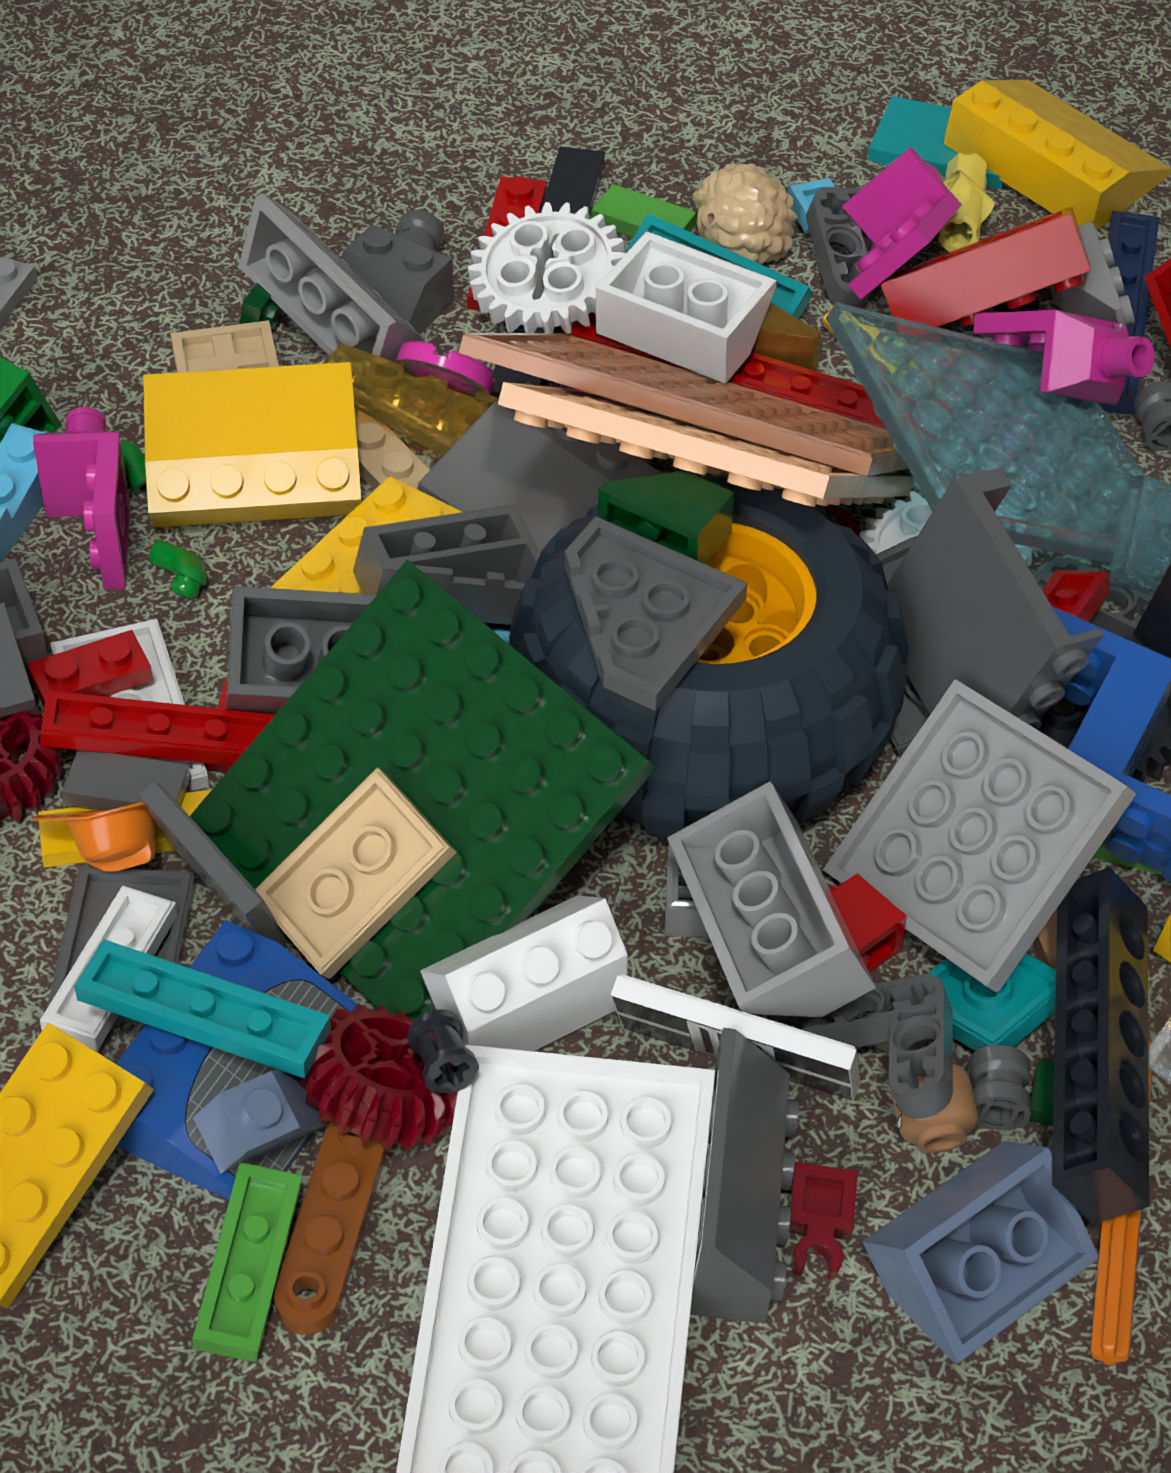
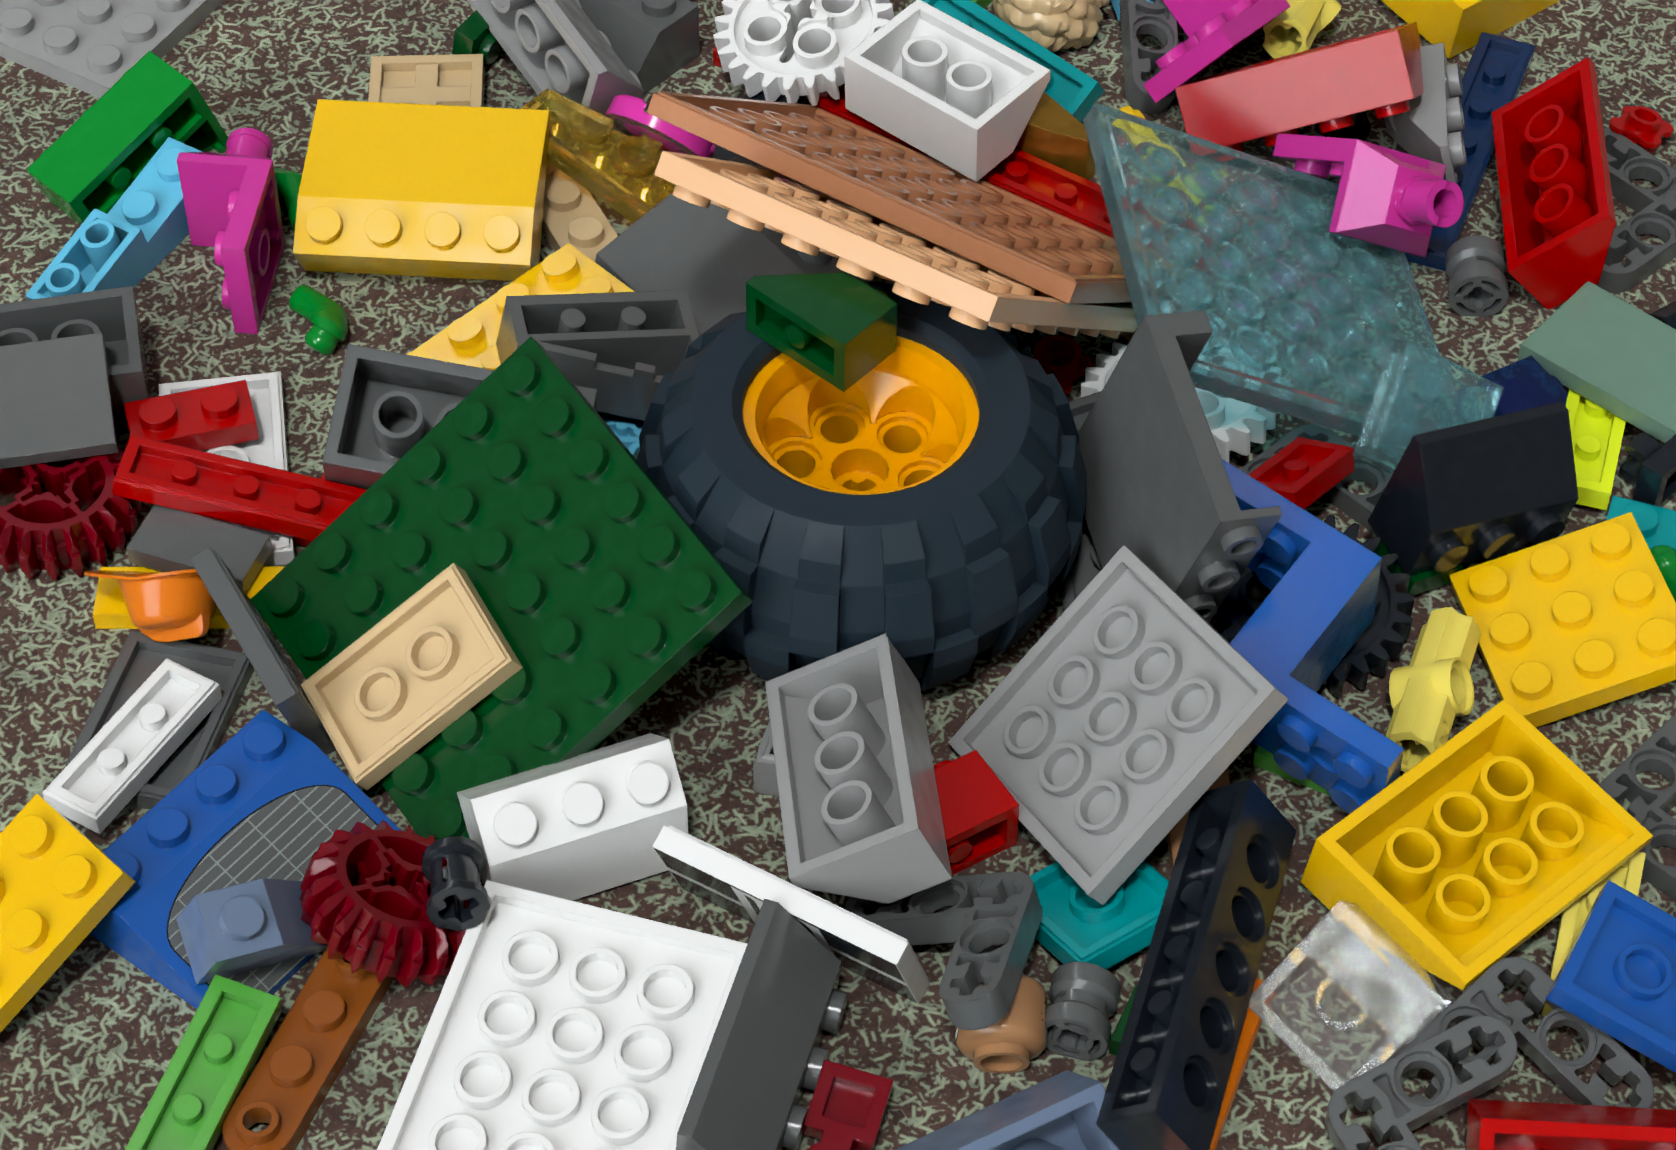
camera: 10 degrees right, 0 degrees up
(203, 1008) = (207, 801): teal plate -> none
(646, 609) = (773, 422): dark grey plate -> none

